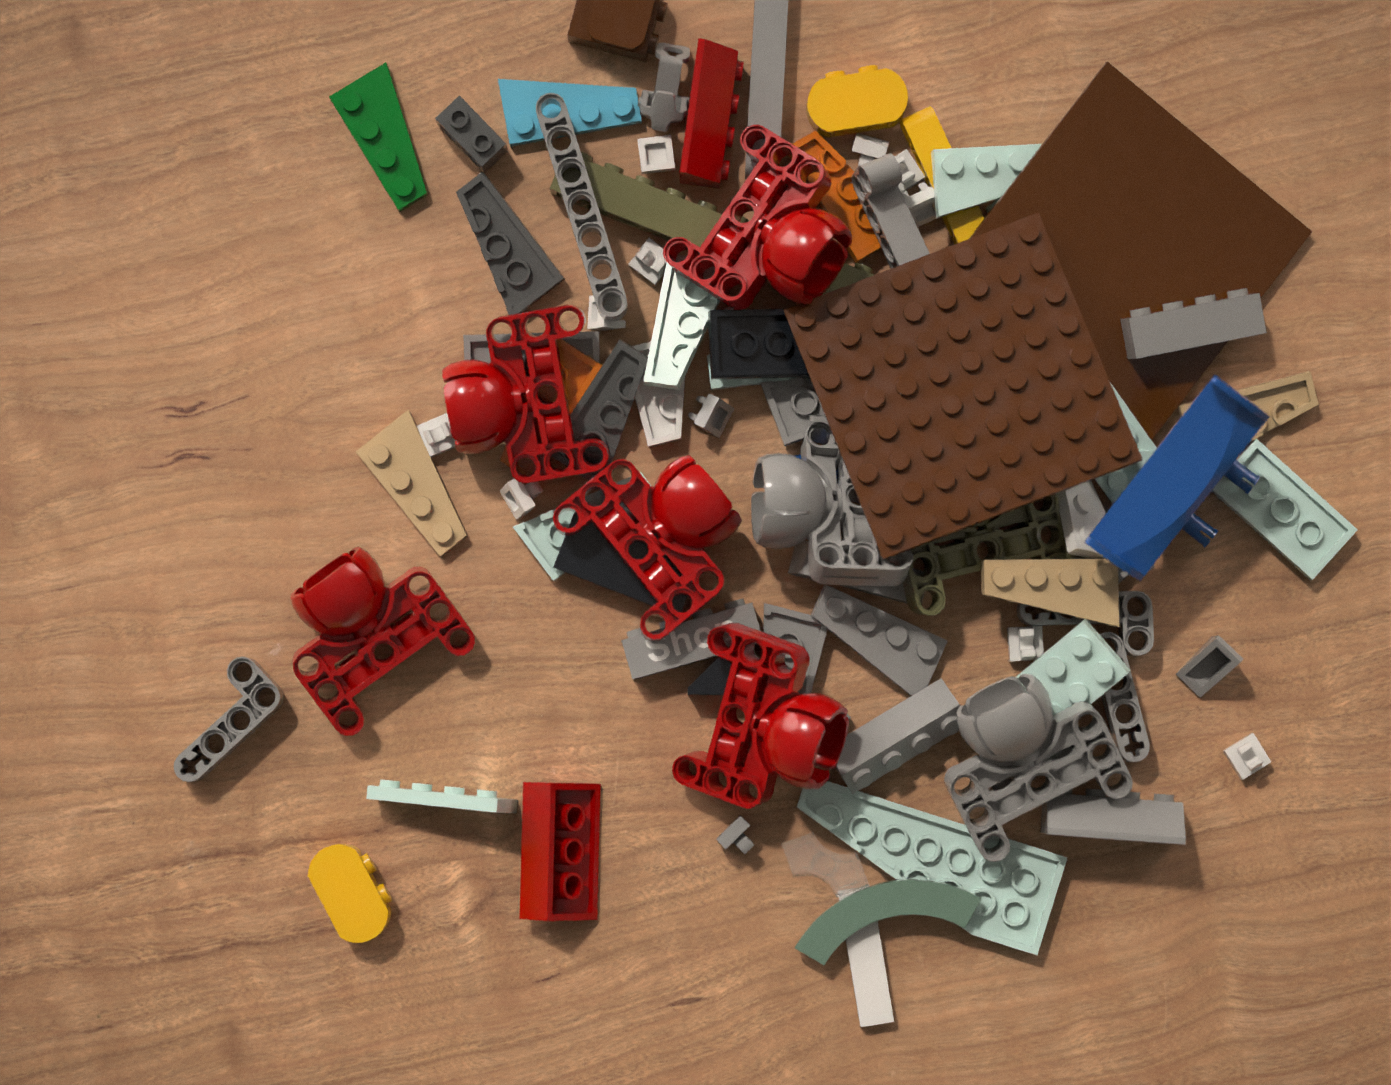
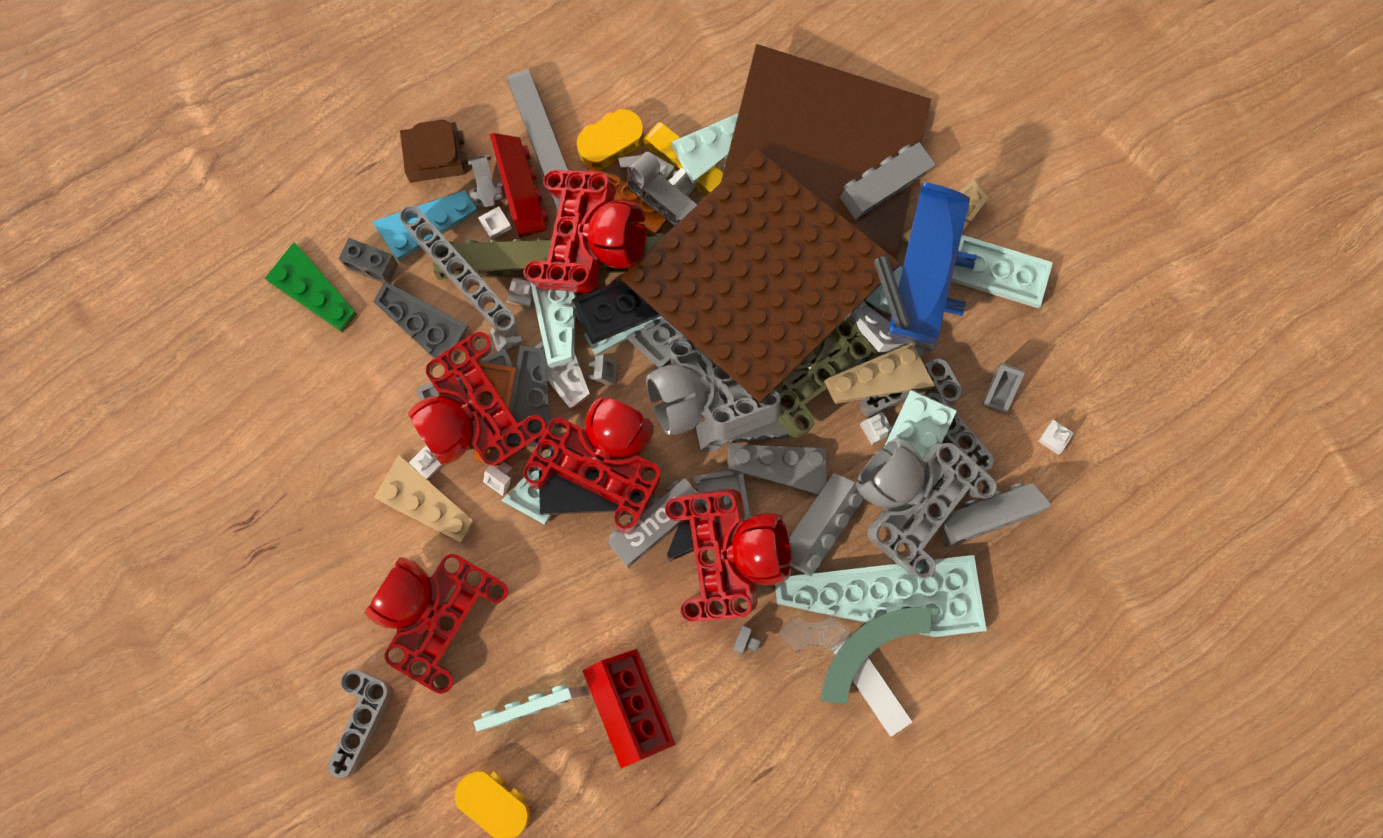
camera: 25 degrees left, 10 degrees down
(1111, 494) = (892, 292): none -> dark grey axle

